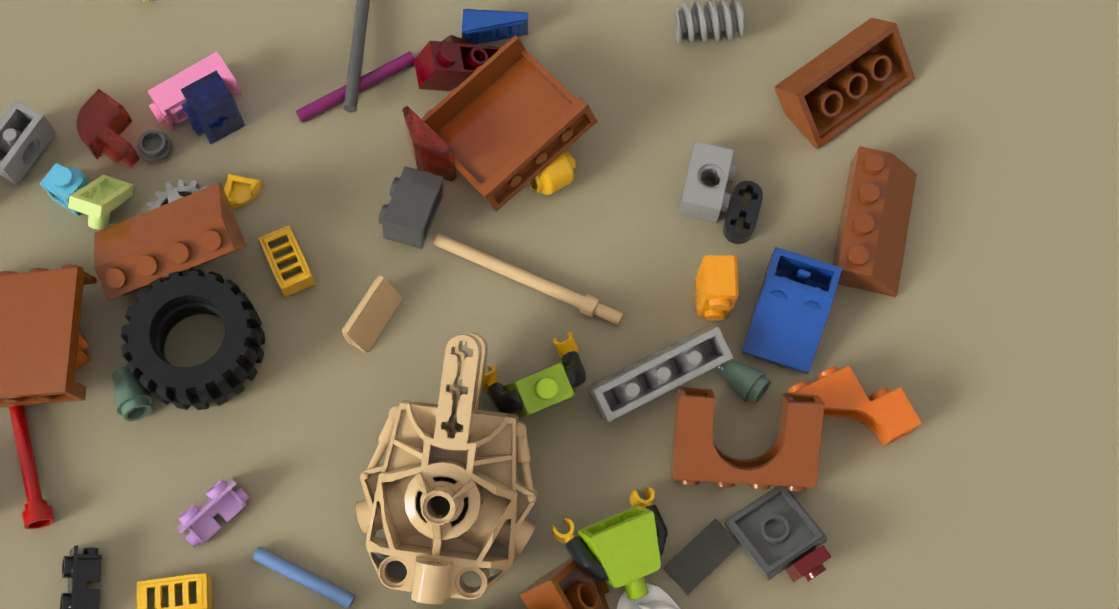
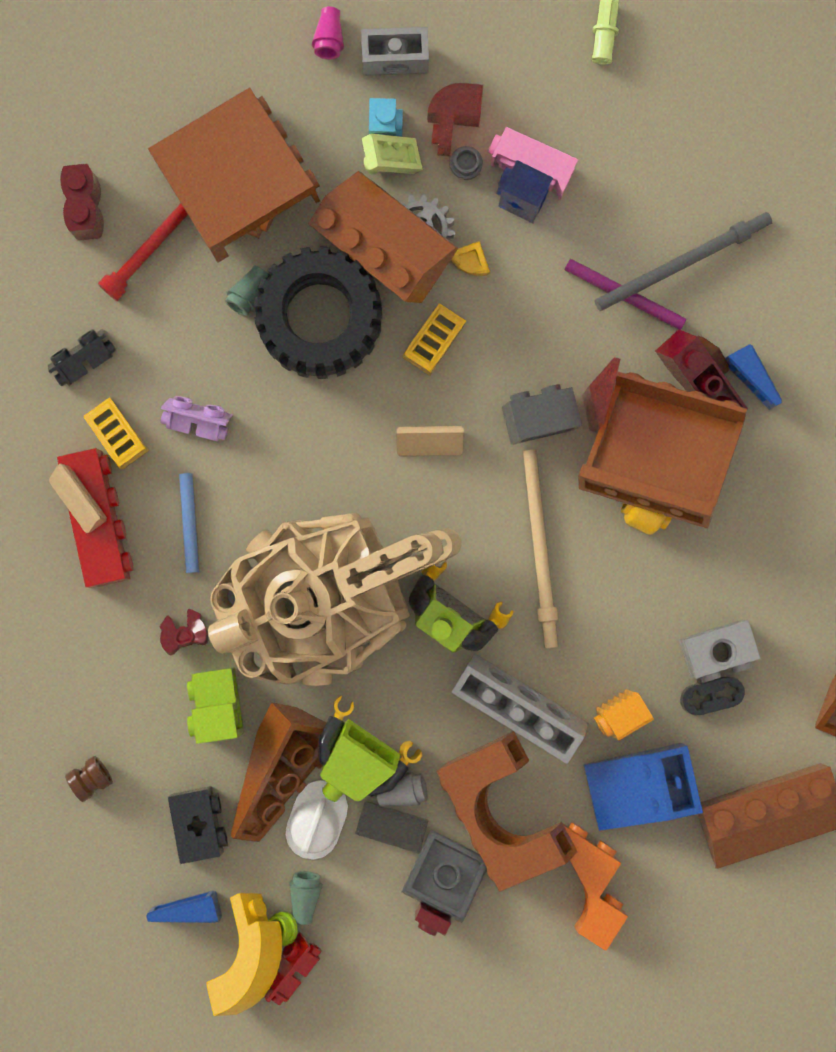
camera: 60 degrees right, 15 degrees up
(678, 520) = (408, 792): none -> light grey cone
(745, 380) = (559, 782): sand green cone -> none

